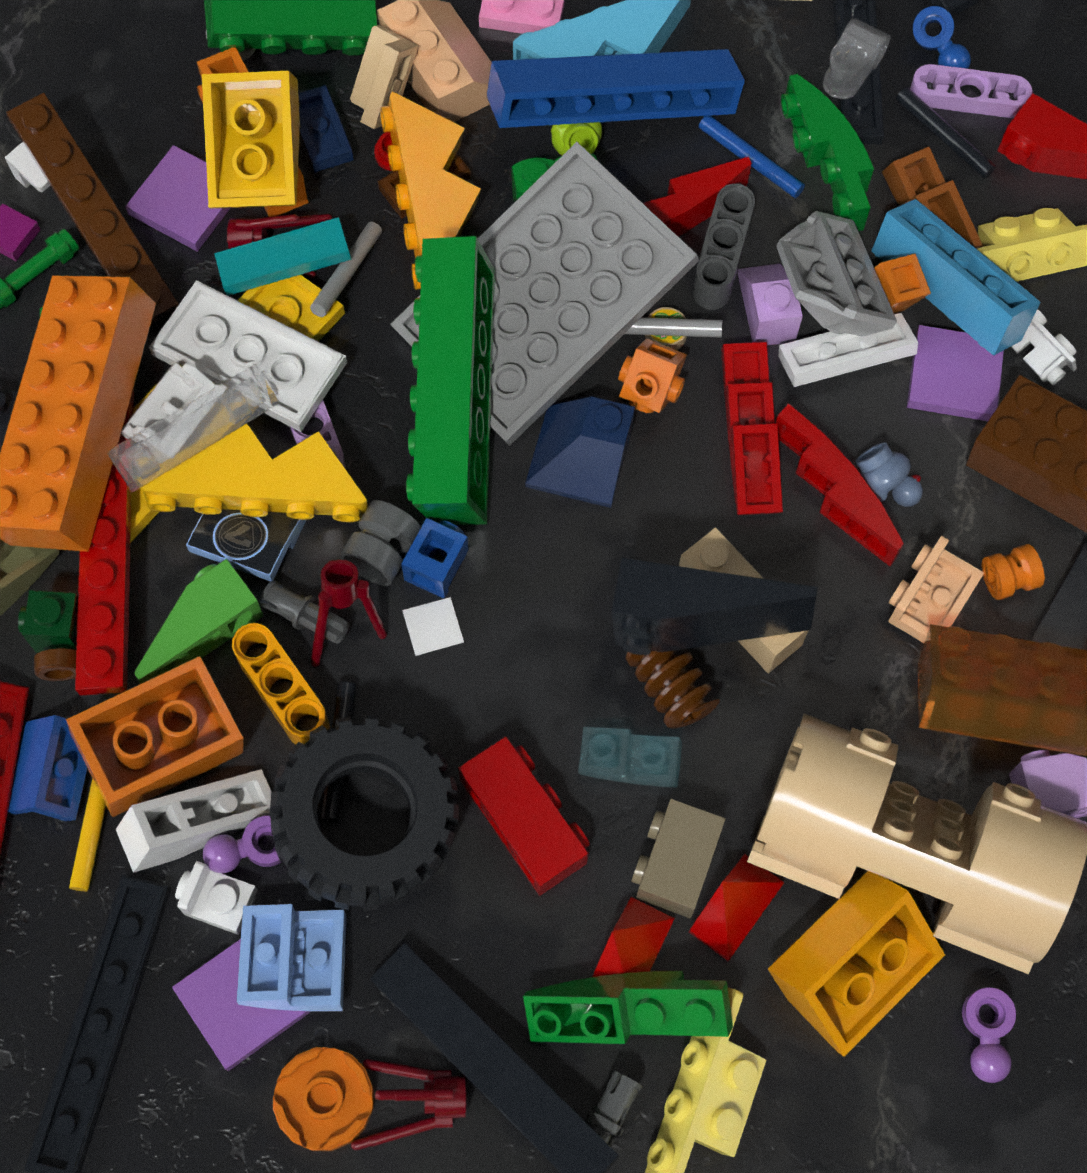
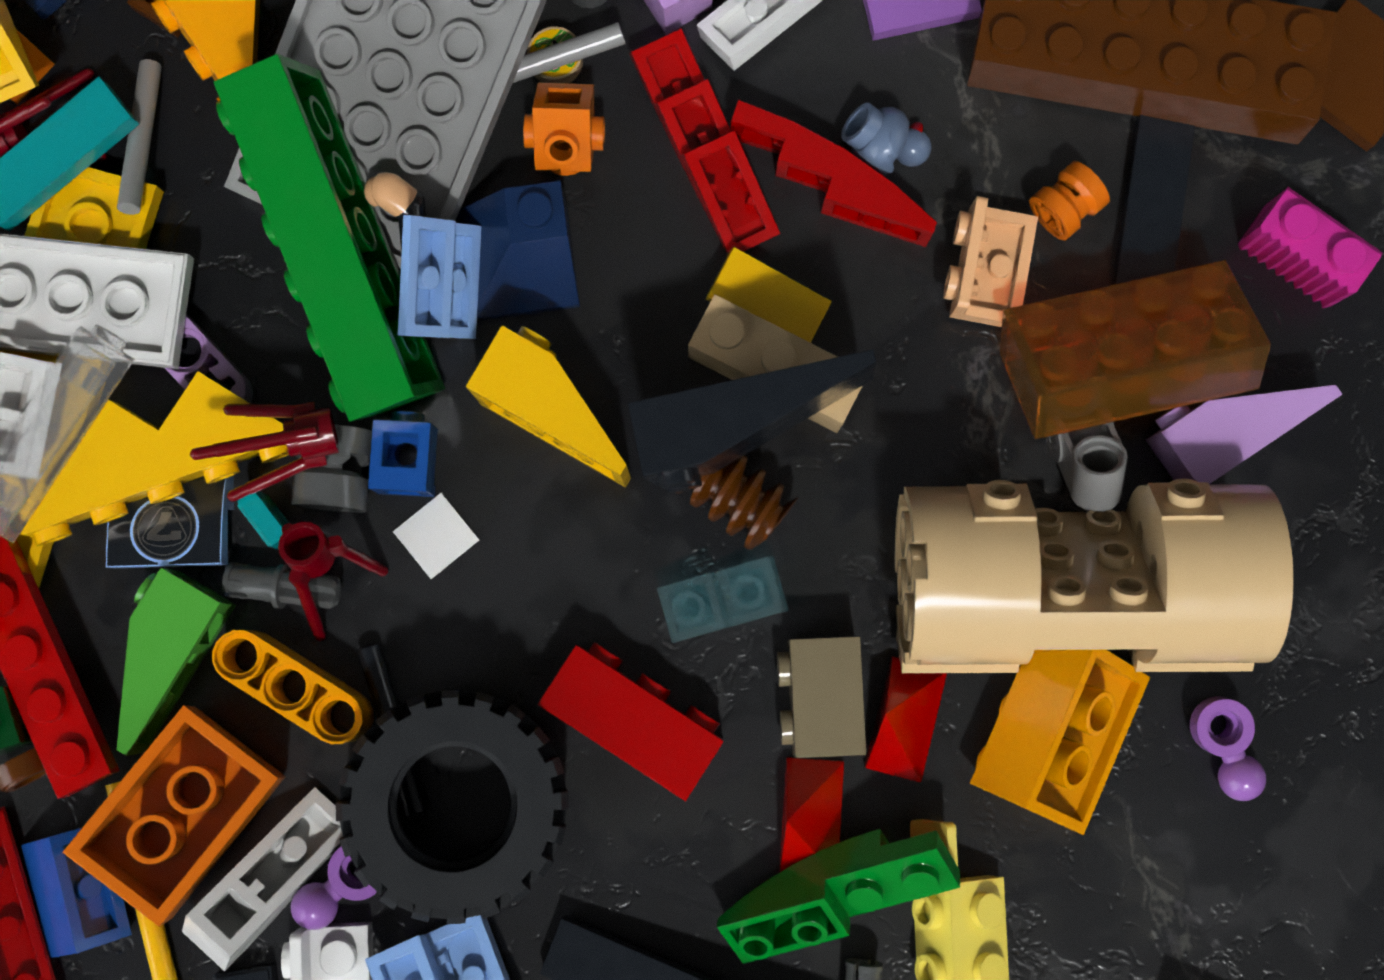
camera: 20 degrees left, 15 degrees up
(314, 557) = (264, 517): none -> teal tile
(377, 500) = (308, 435): none -> dark red plant
(515, 379) = (395, 197): none -> light nougat arm
(518, 439) = (439, 278): none -> light blue slope
(552, 548) = (531, 389): none -> yellow slope
(758, 546) = (769, 295): none -> yellow tile
(956, 766) = (1091, 465): none -> light grey piece

